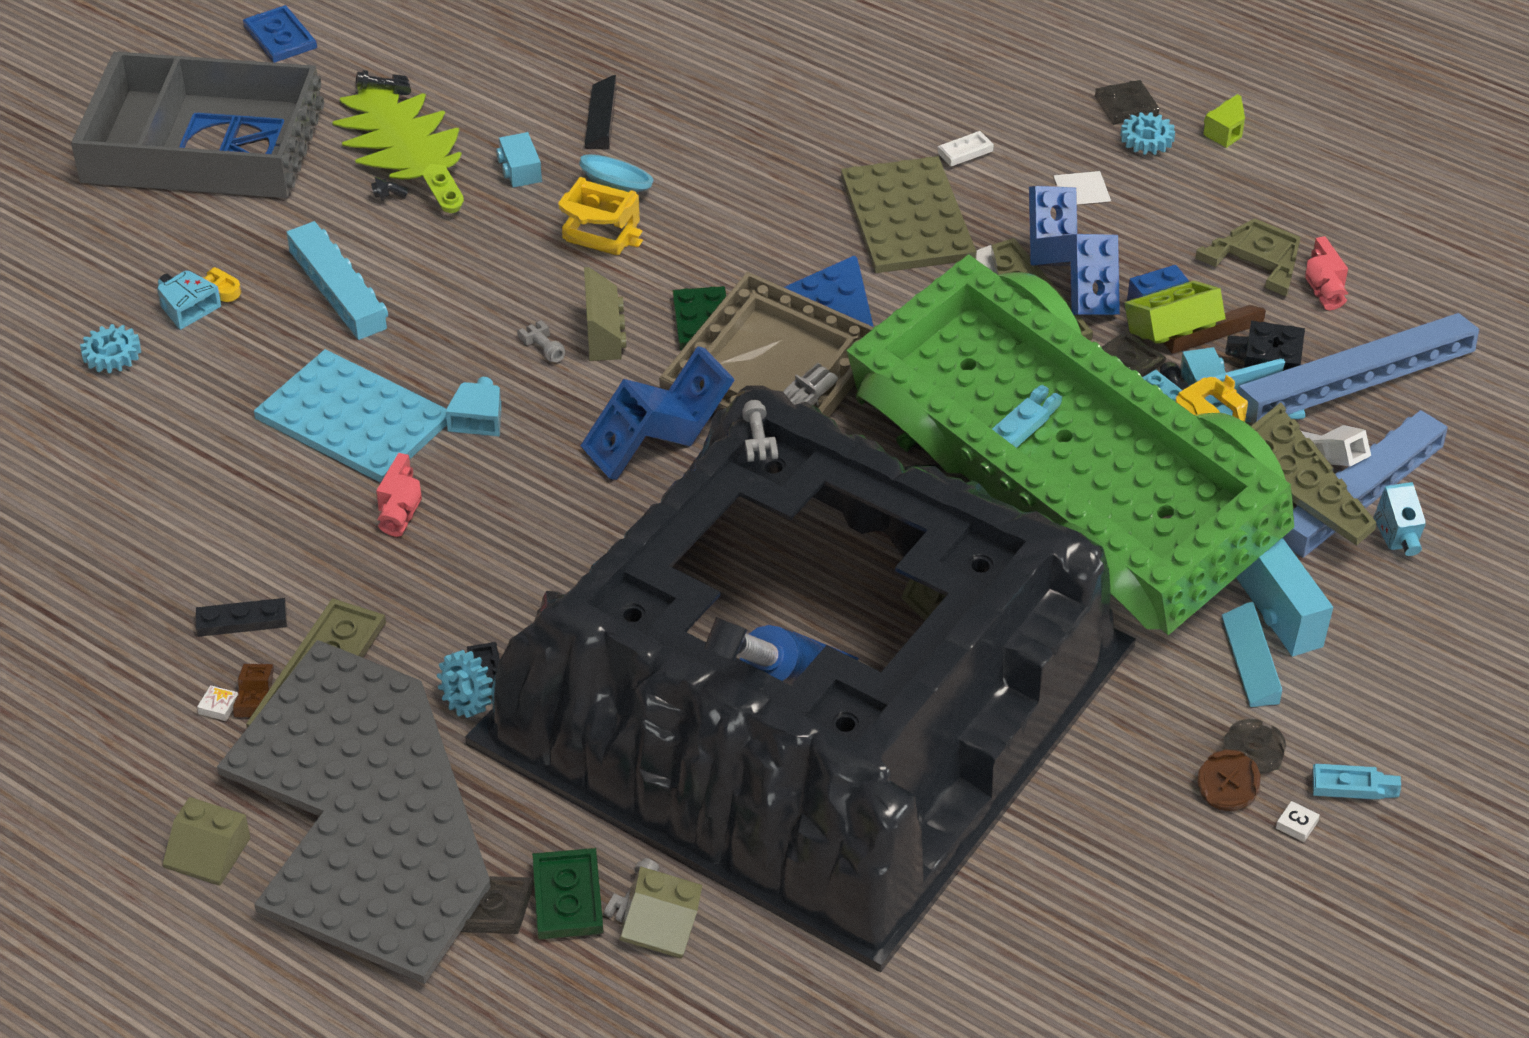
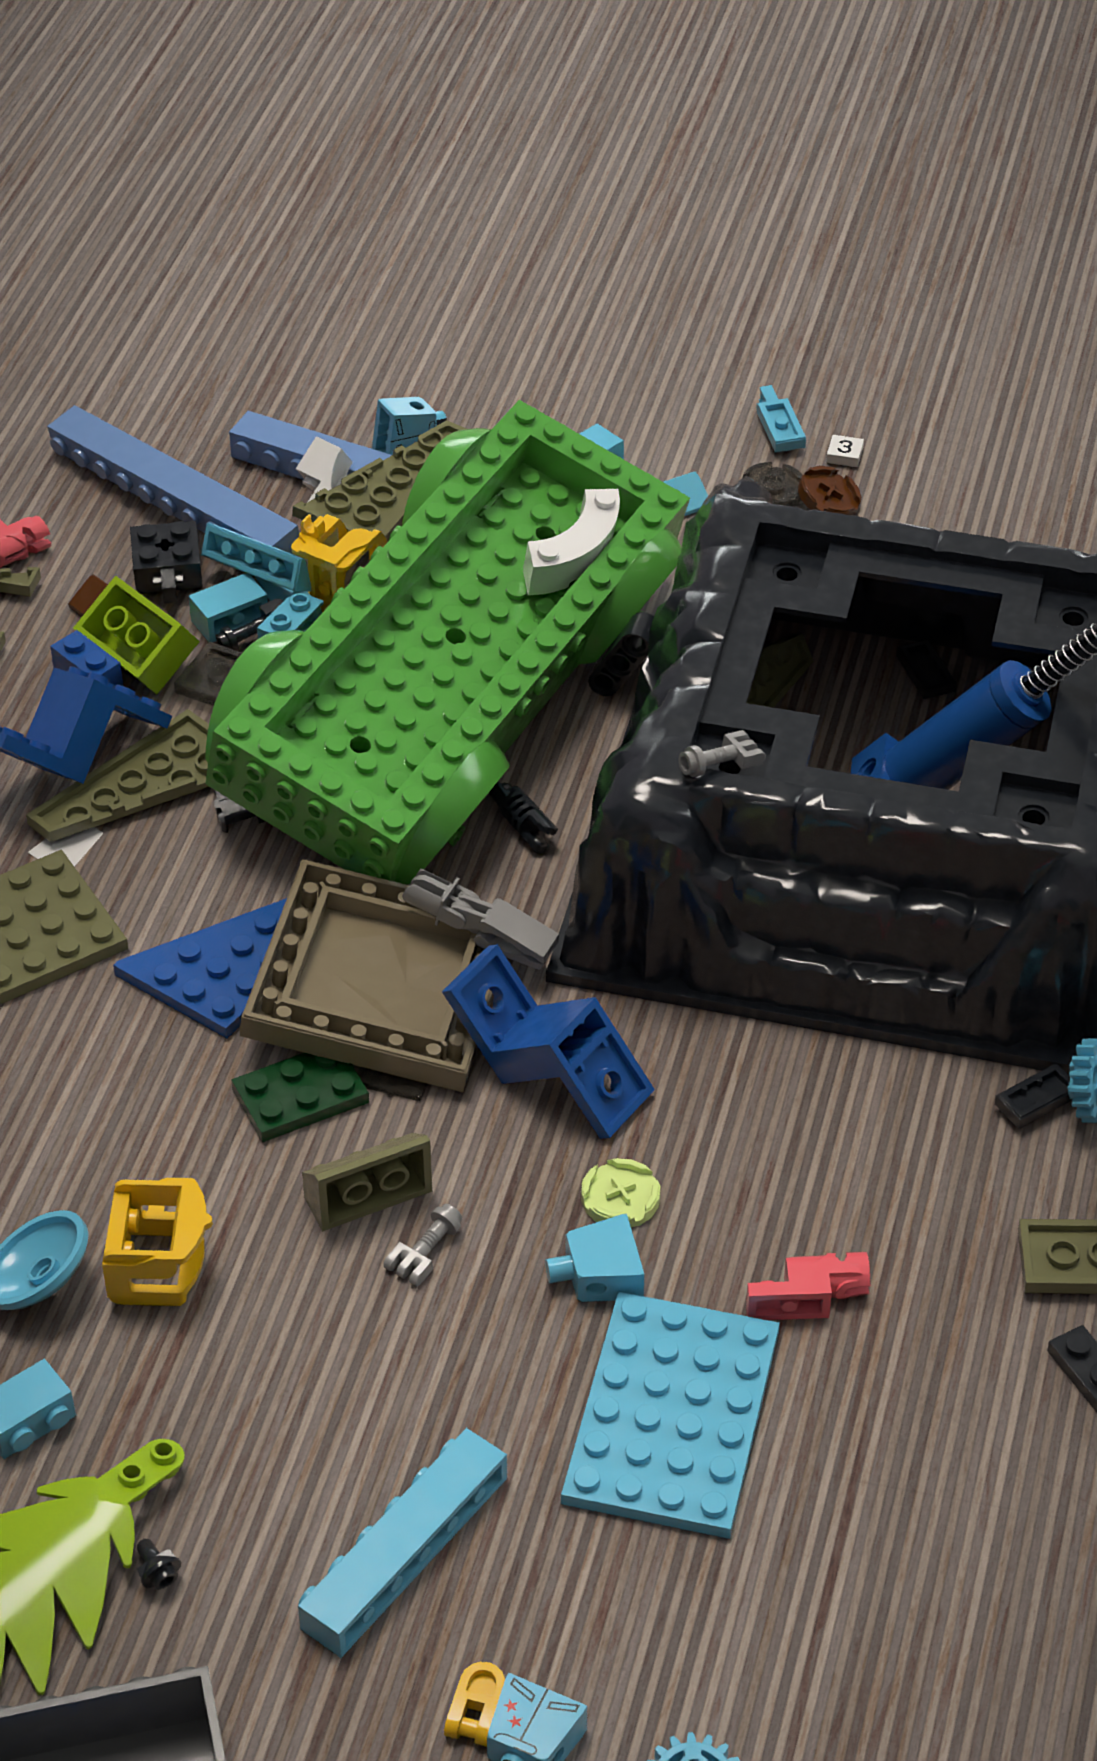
camera: 110 degrees left, 0 degrees up
(533, 440) = (619, 1189): none -> yellowish green tile
(1028, 416) = (449, 660): medium azure hinge -> none
(1144, 522) = (563, 558): none -> white brick

